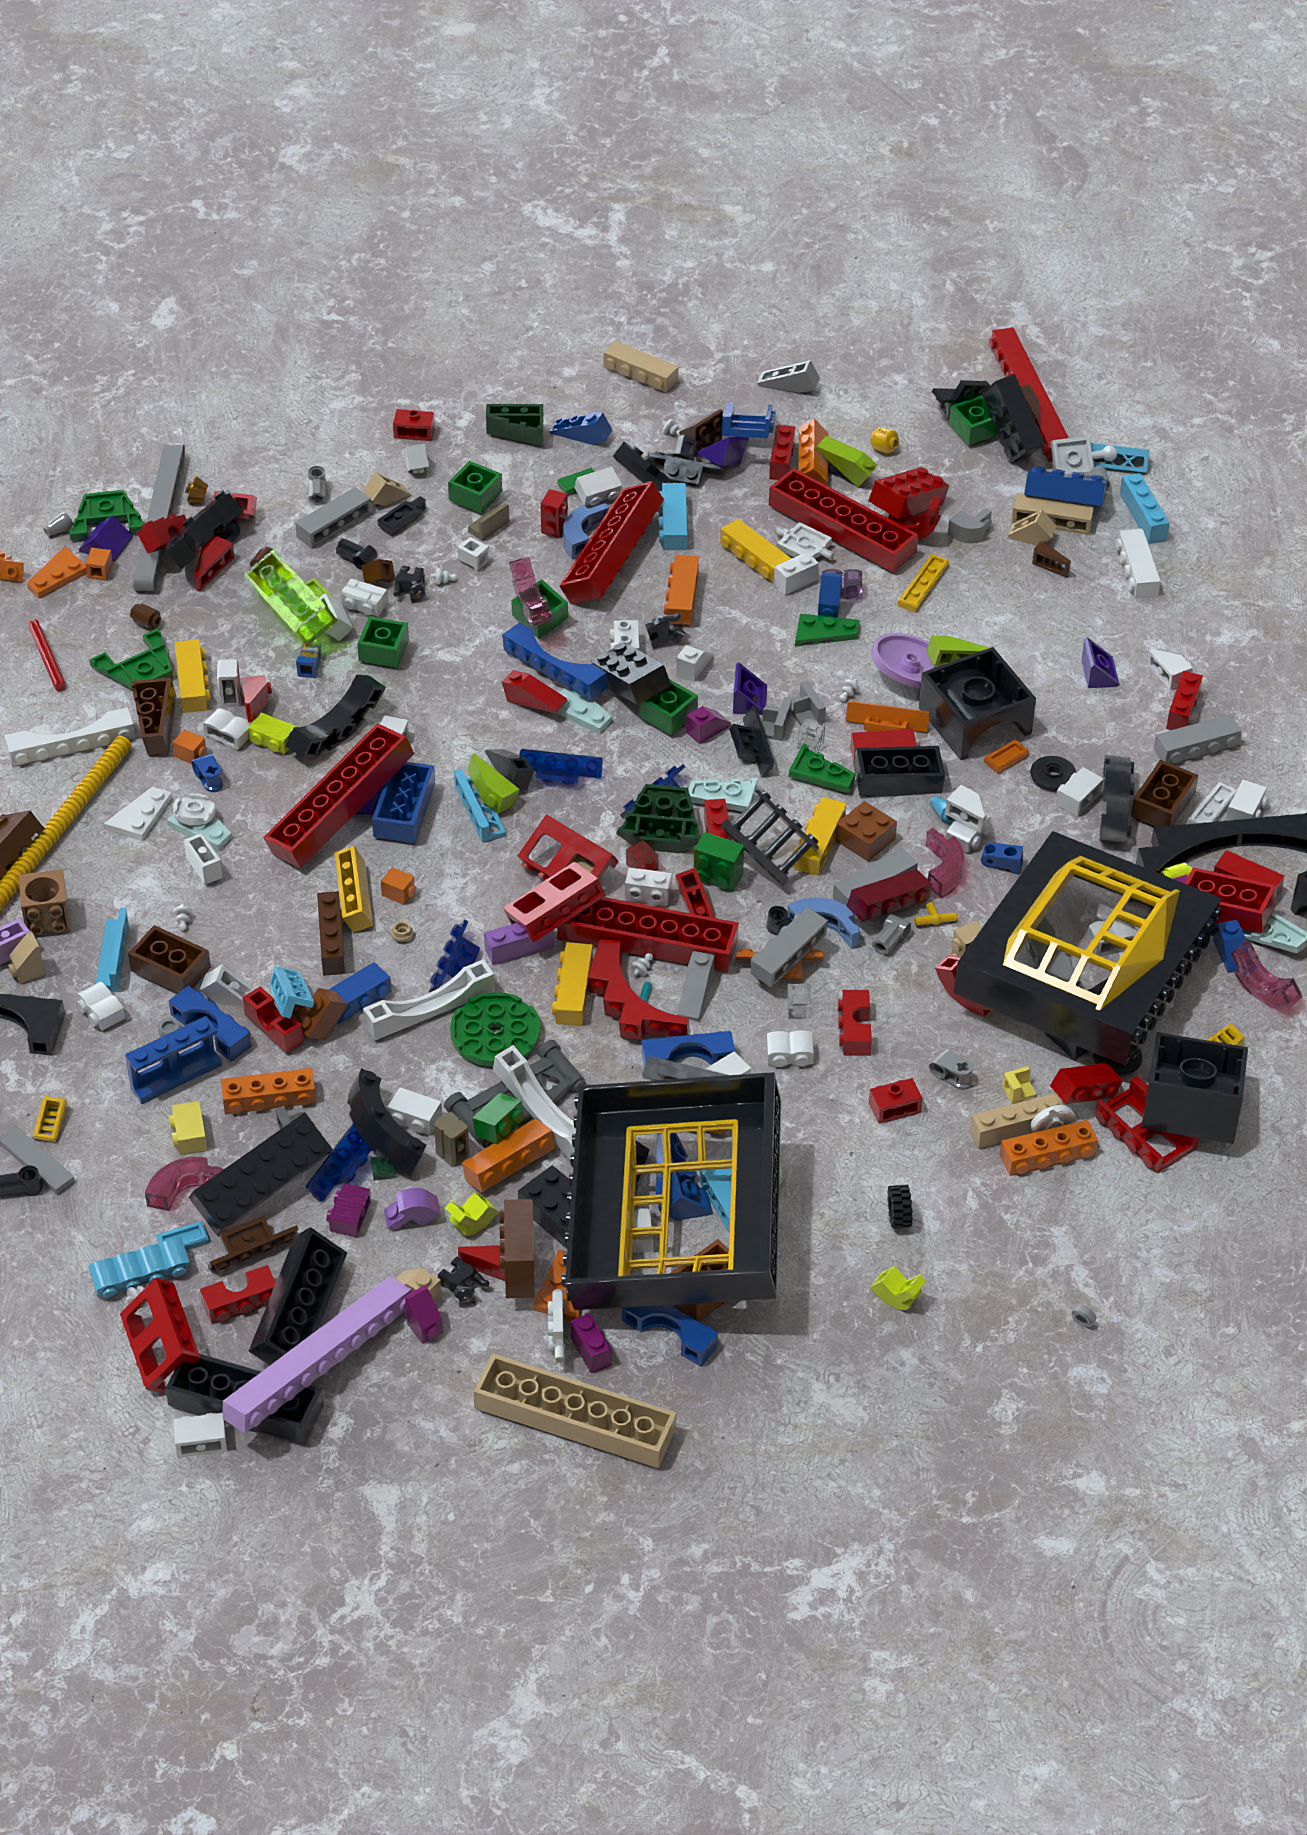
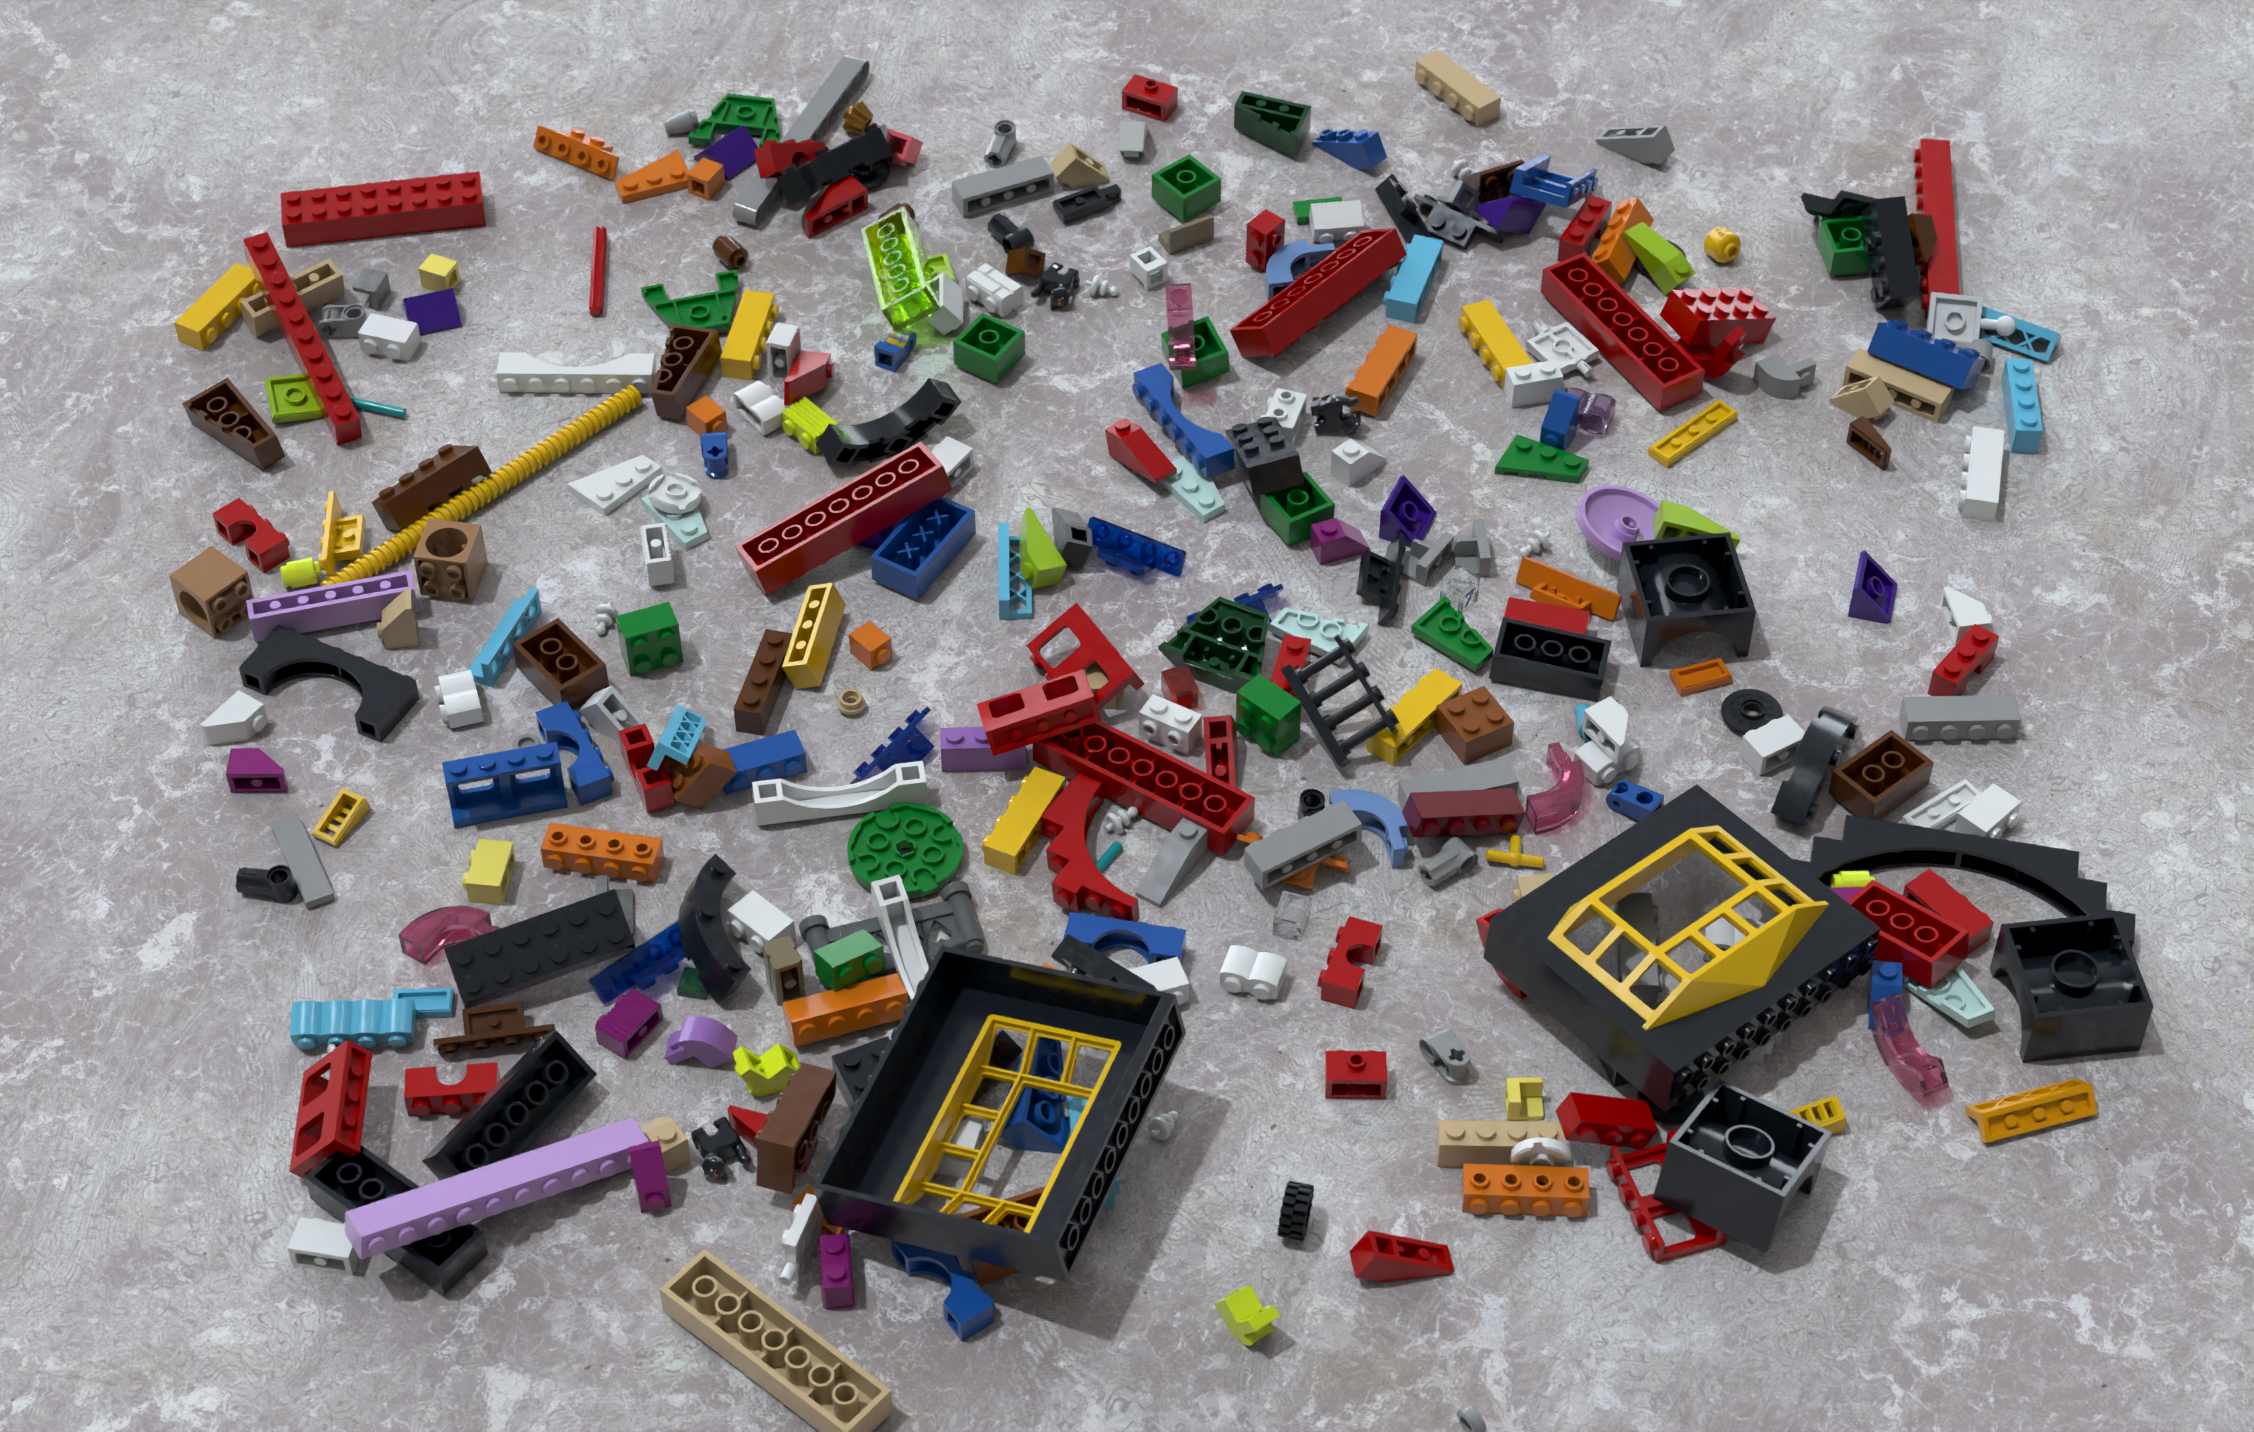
camera: 20 degrees right, 0 degrees up
(230, 923) = (649, 638): none -> green brick
(982, 1219) = (1397, 1258): none -> red slope

